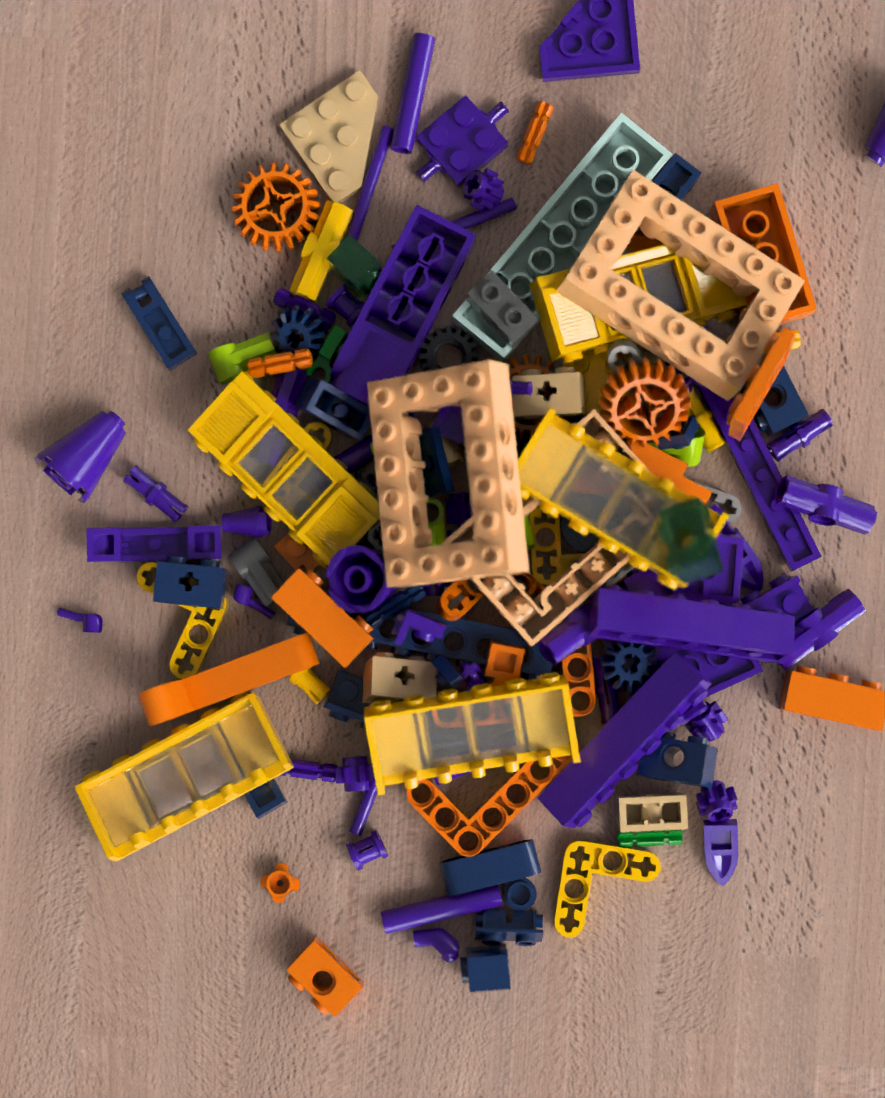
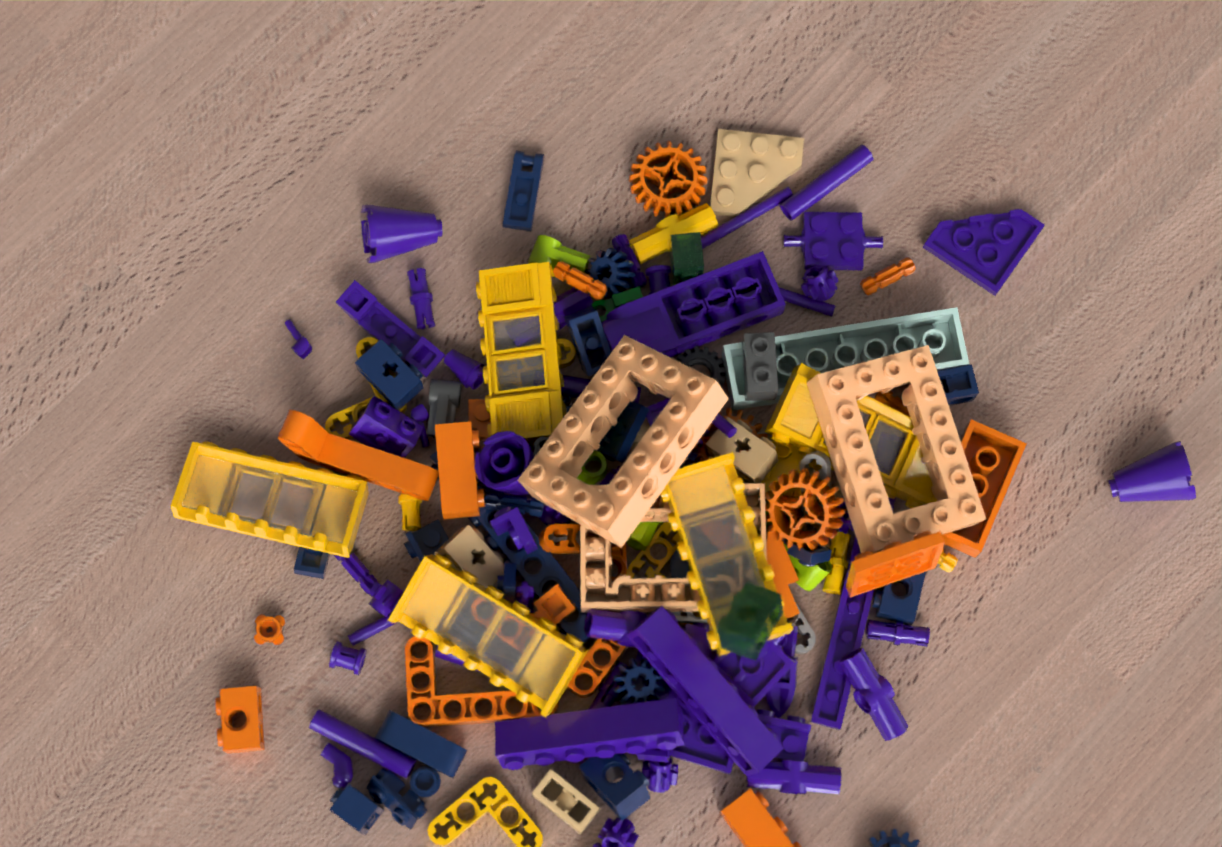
camera: 40 degrees right, 10 degrees down
(229, 633) = (386, 429): none -> dark purple bracket
(650, 838) = (550, 821): green axle -> none

